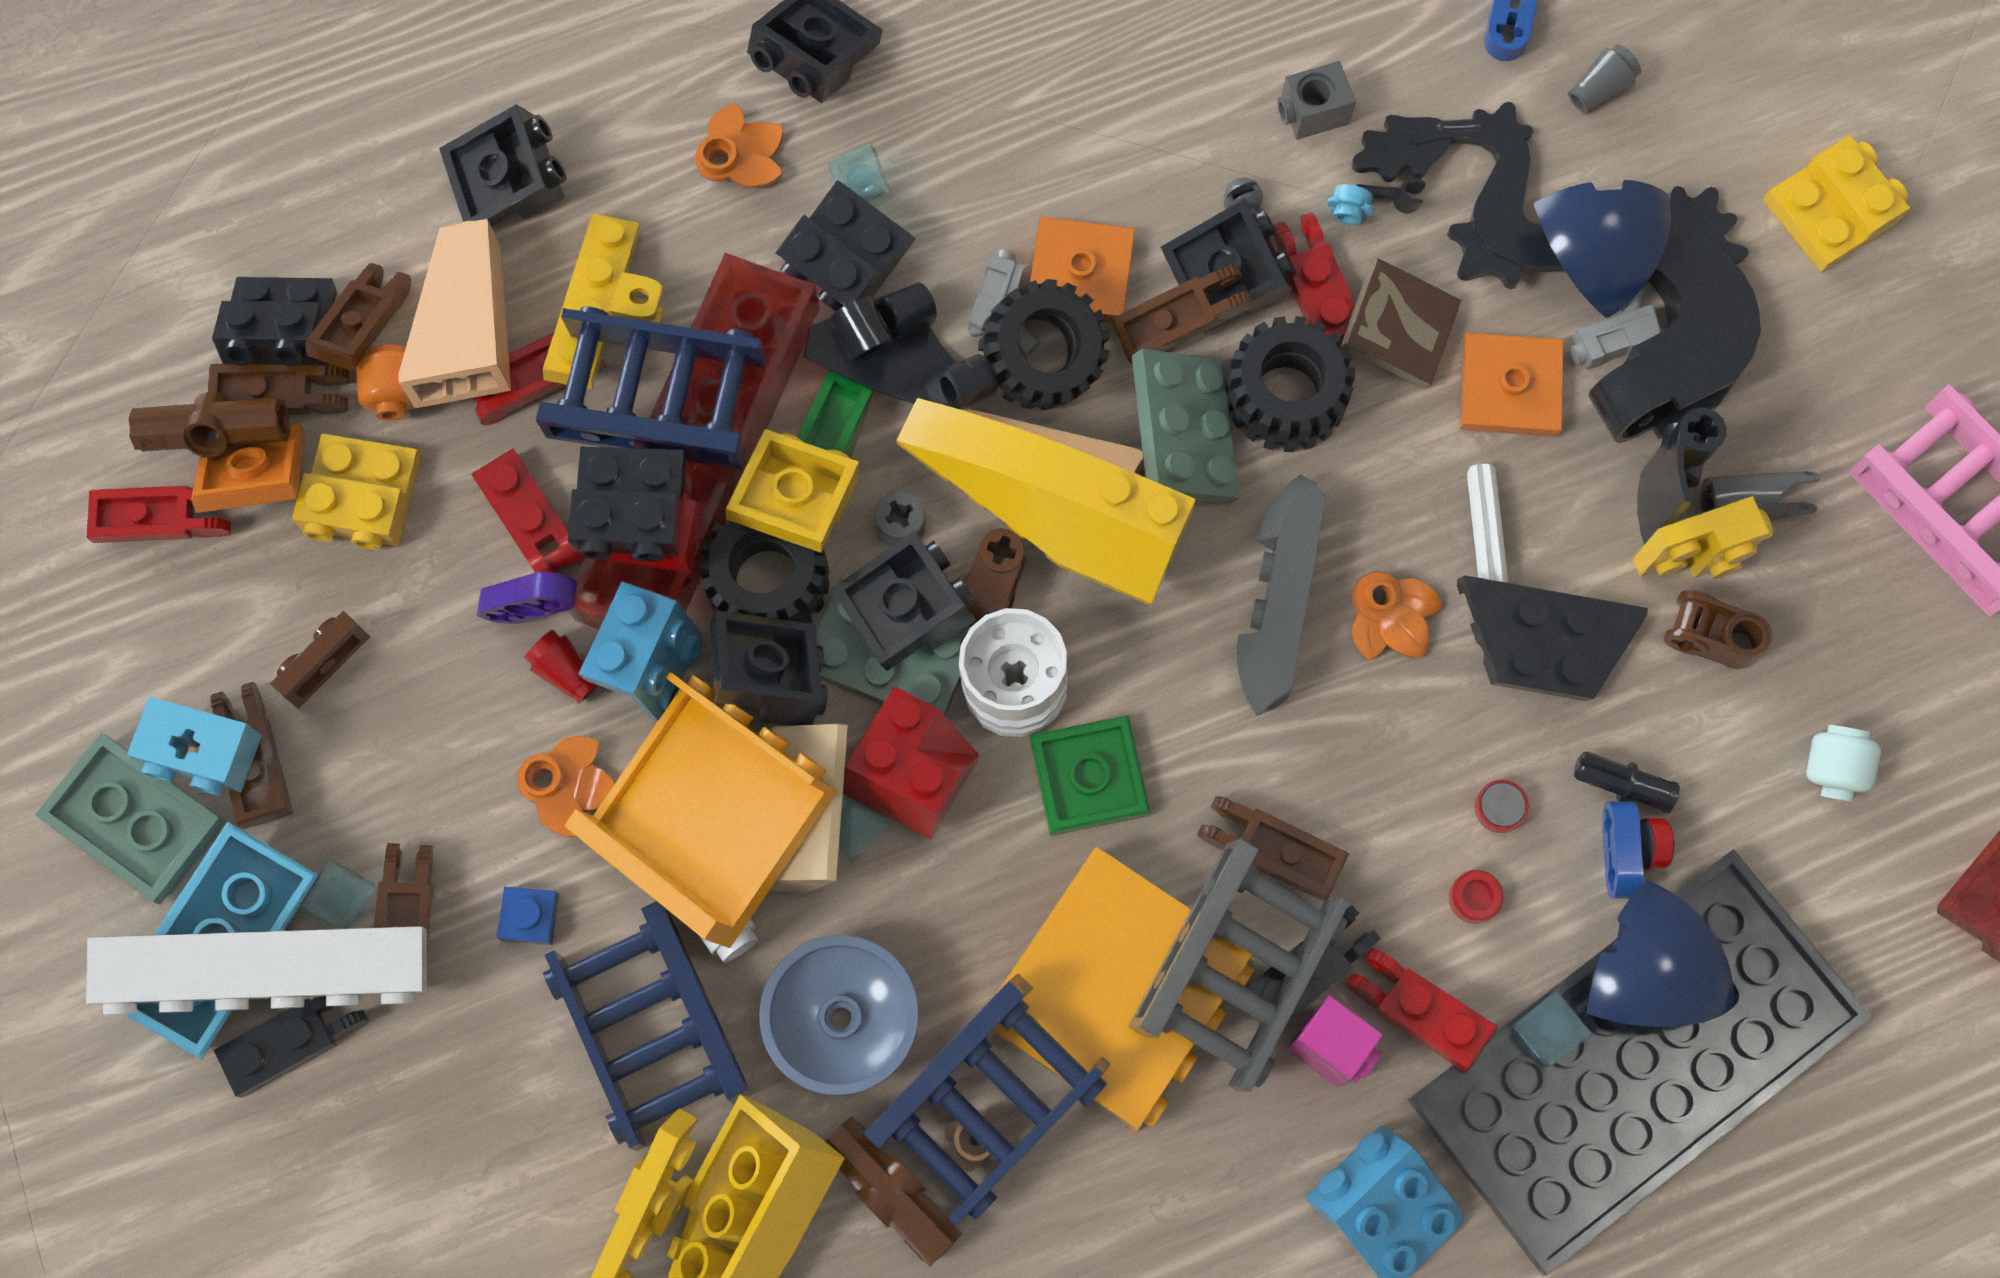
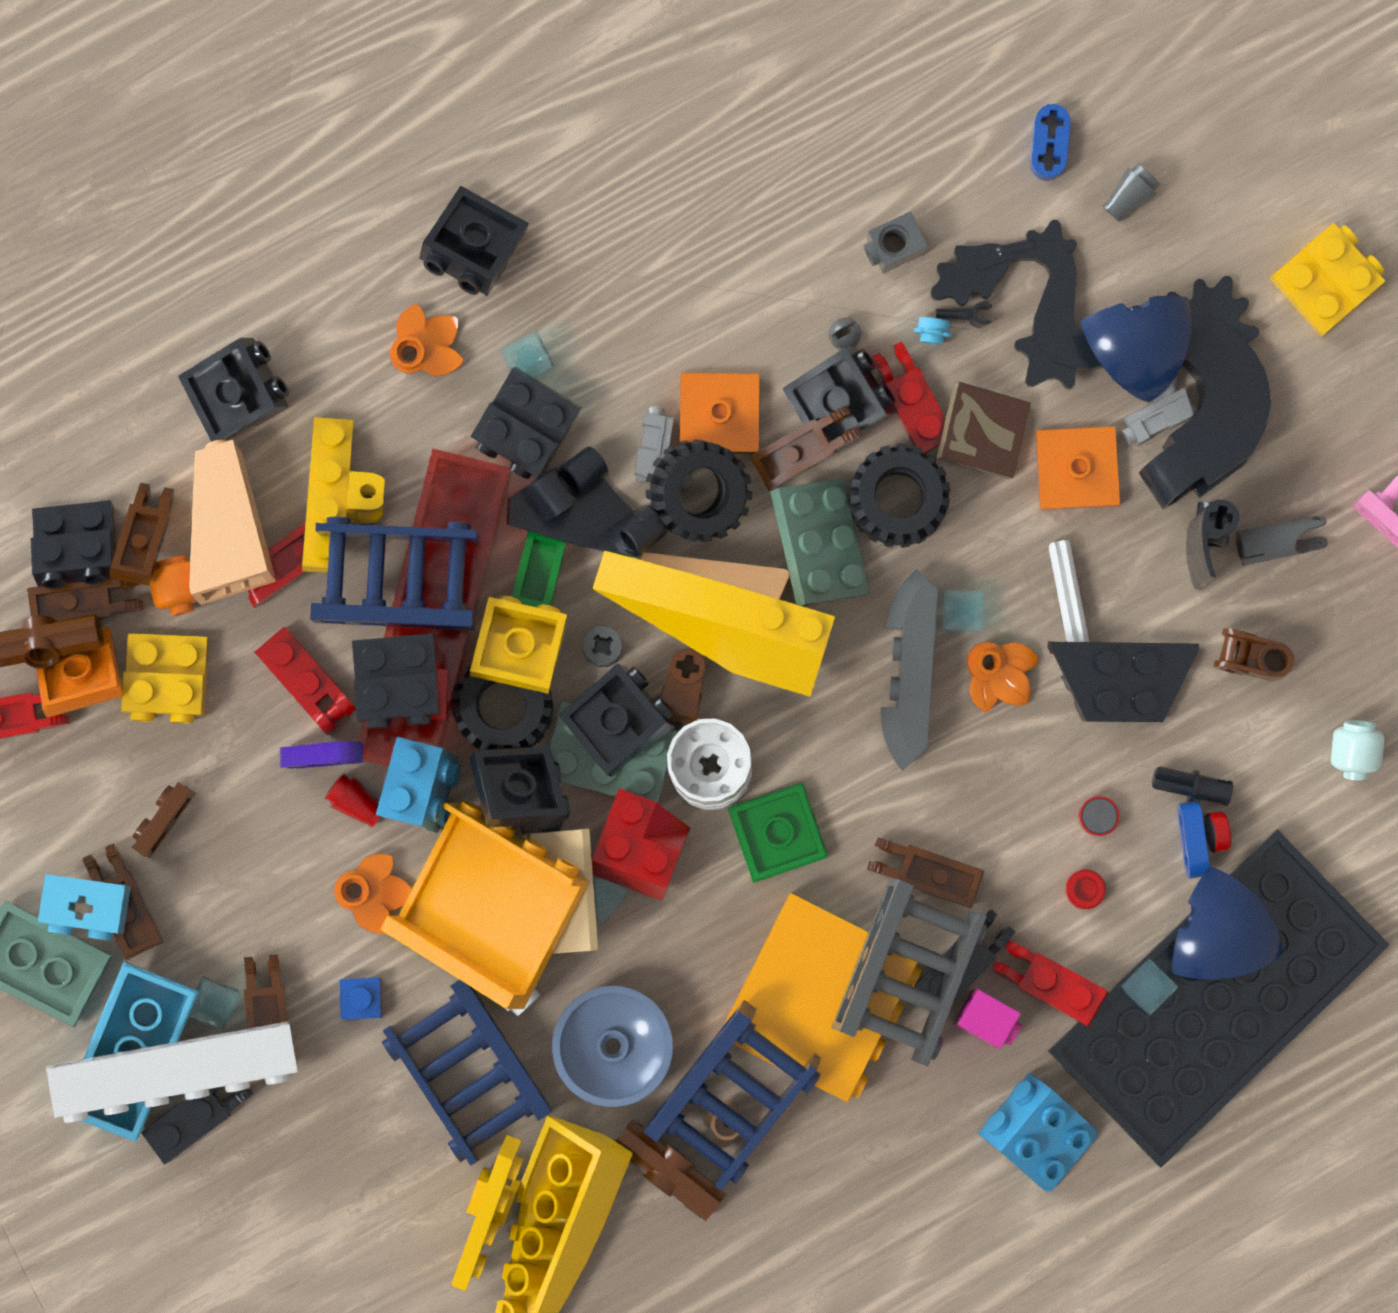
camera: 10 degrees left, 10 degrees up
(1353, 532) = (963, 611): none -> clear light blue plate
(1707, 542) = (1246, 588): yellow plate -> none

